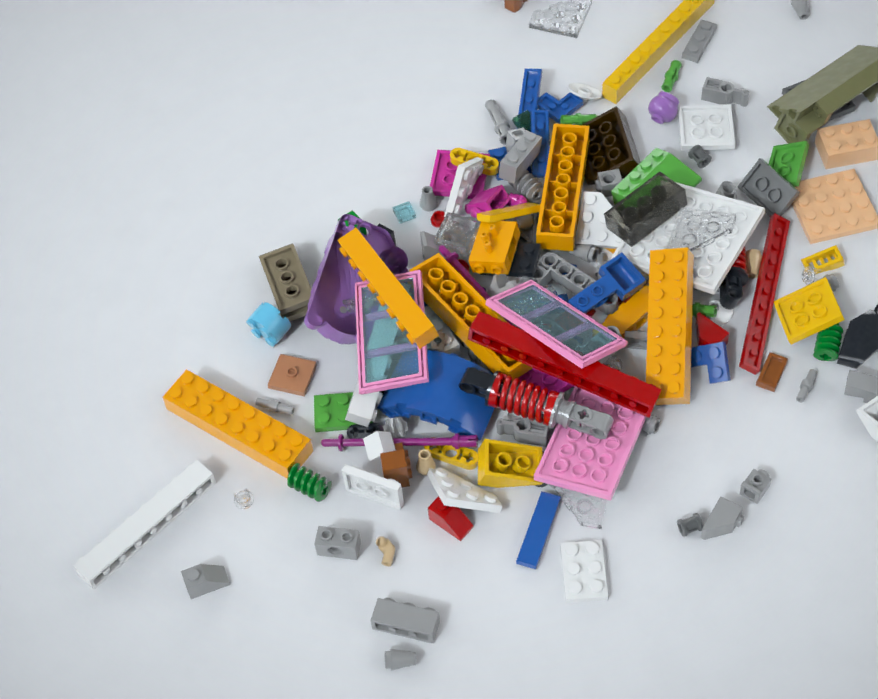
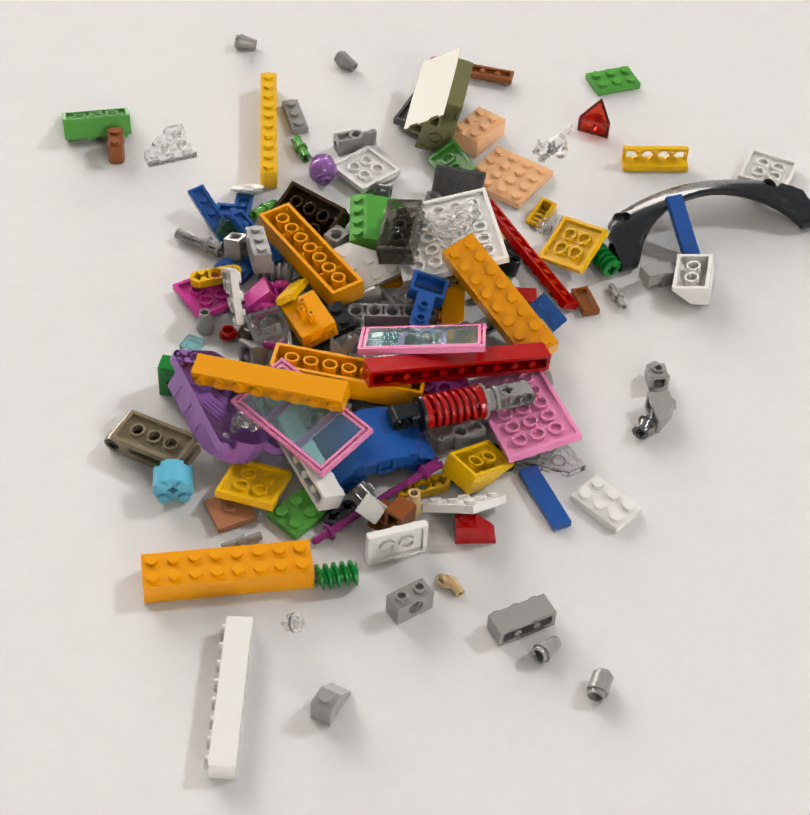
camera: 50 degrees left, 10 degrees down
(324, 365) = (254, 484): none -> yellow plate

